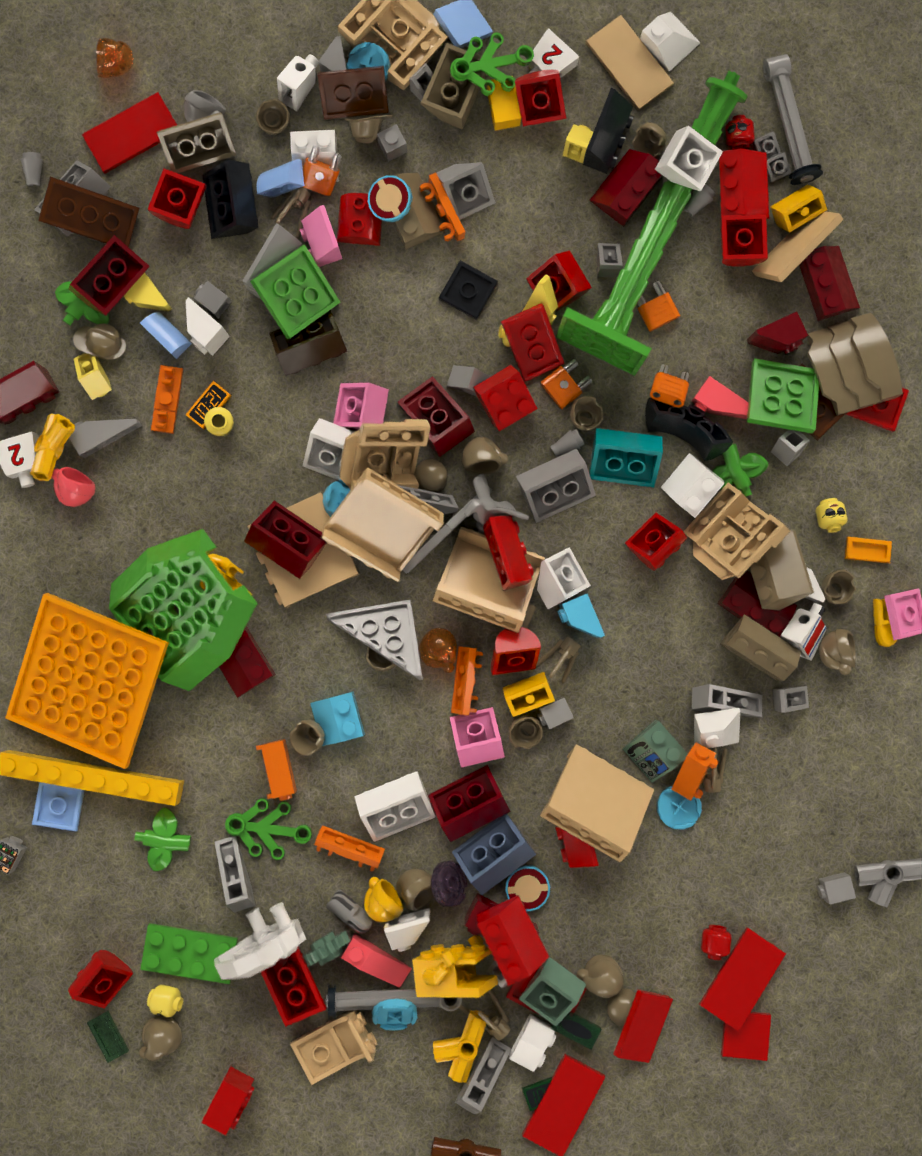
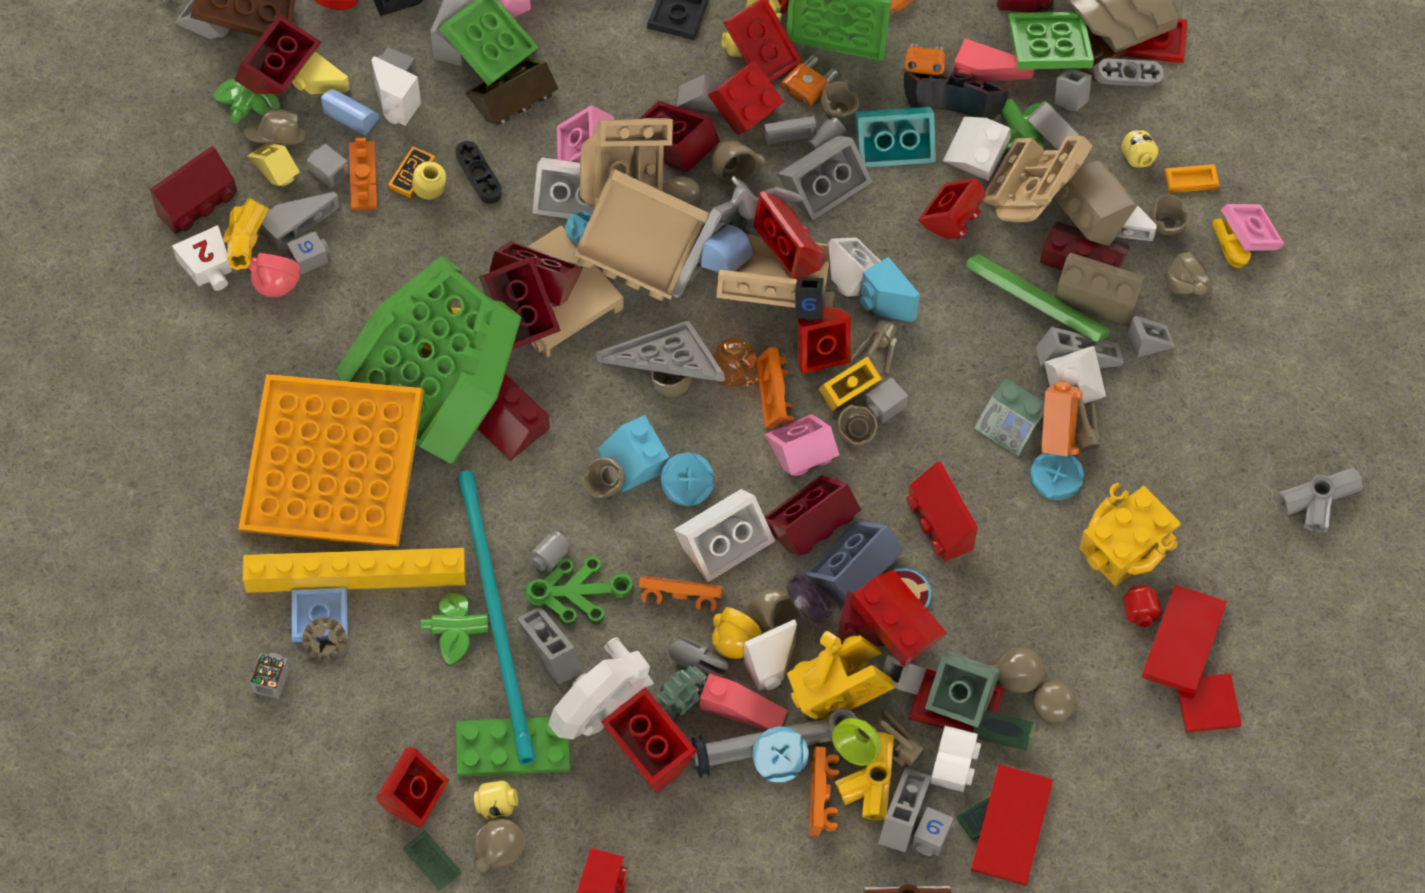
camera: 10 degrees left, 25 degrees down
(50, 826) = (318, 628): none -> dark tan gear
(106, 469) = (308, 252): none -> light grey brick
(136, 386) = (327, 166): none -> light grey brick
(194, 959) = (522, 738): none -> teal piece
(251, 792) = (550, 551): none -> light grey brick
(254, 403) = (478, 162): none -> black beam
(264, 573) = (523, 291): none -> dark red slope
(278, 769) = (576, 520): orange brick -> none
(334, 1046) = (718, 806): tan bracket -> none
(375, 752) = (687, 479): none -> medium azure tile
(420, 1049) = (821, 792): none -> orange plate
(453, 551) = (726, 250): none -> light blue brick
(457, 1025) = (853, 745): none -> lime piece
(499, 1102) = (932, 832): none -> light grey brick
(508, 629) = (809, 298): none -> black brick
(536, 433) = (789, 130): none -> light grey tile
(598, 803) = (958, 469): tan panel -> none
(643, 1026) = (1082, 709): red tile -> none
(706, 643) = (1037, 298): none -> bright green tile
(722, 884) = (1129, 535): none -> yellow torso
(763, 481) = (1051, 125): none -> light grey tile
(806, 630) = (1147, 258): white torso -> none
(835, 432) = (1136, 66): none -> light grey beam
(836, 888) = (1263, 520): light grey brick -> none

